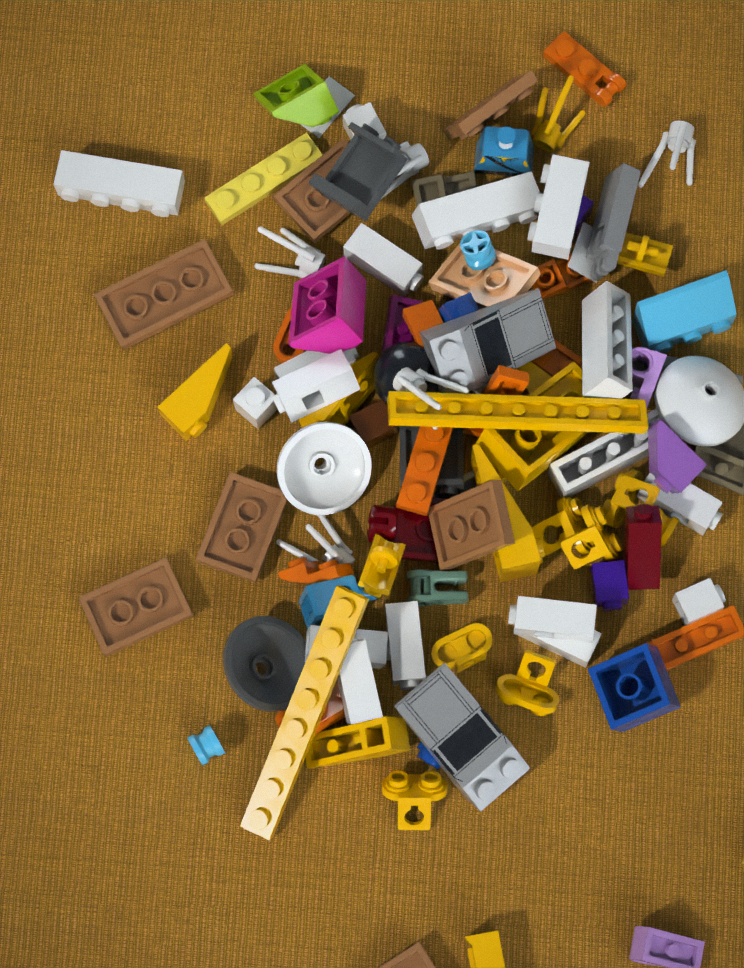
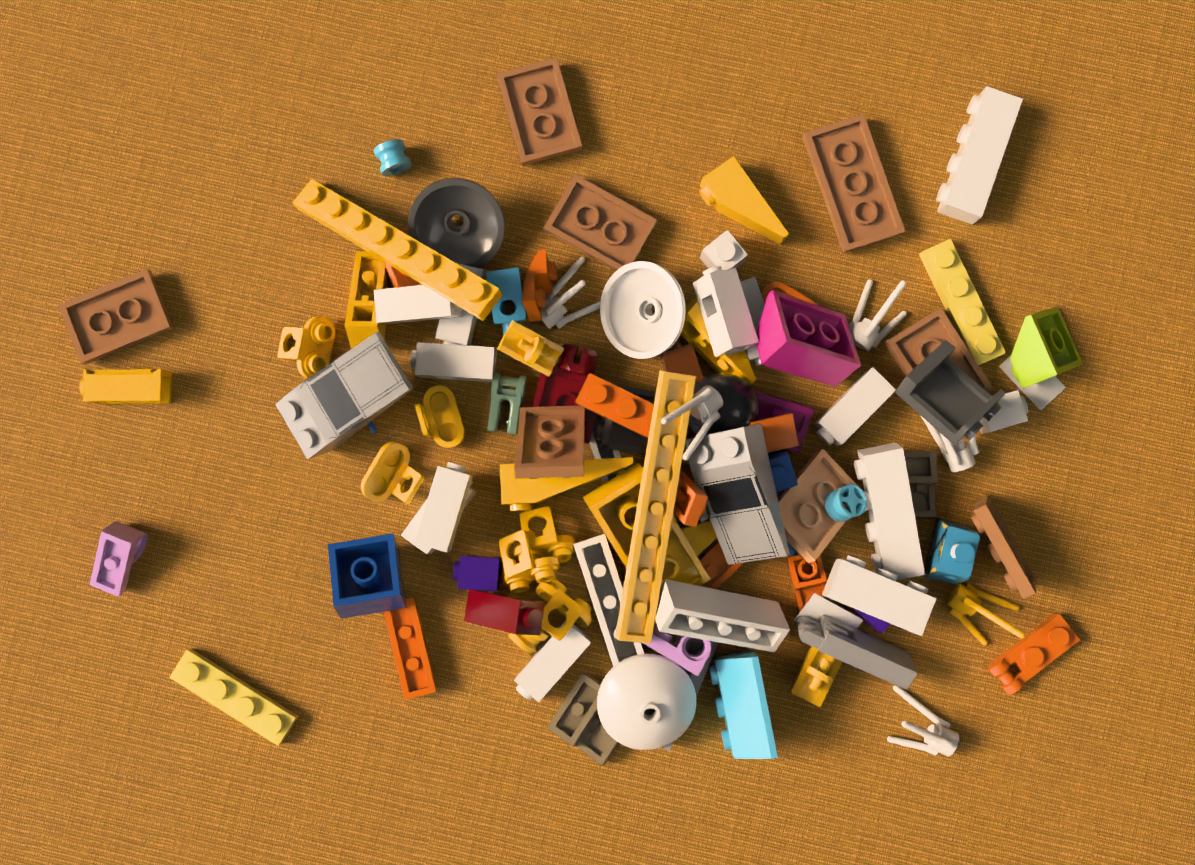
camera: 100 degrees right, 10 degrees up
(671, 459) = (583, 658): medium lavender slope -> none
(698, 601) = (445, 658): white brick -> none

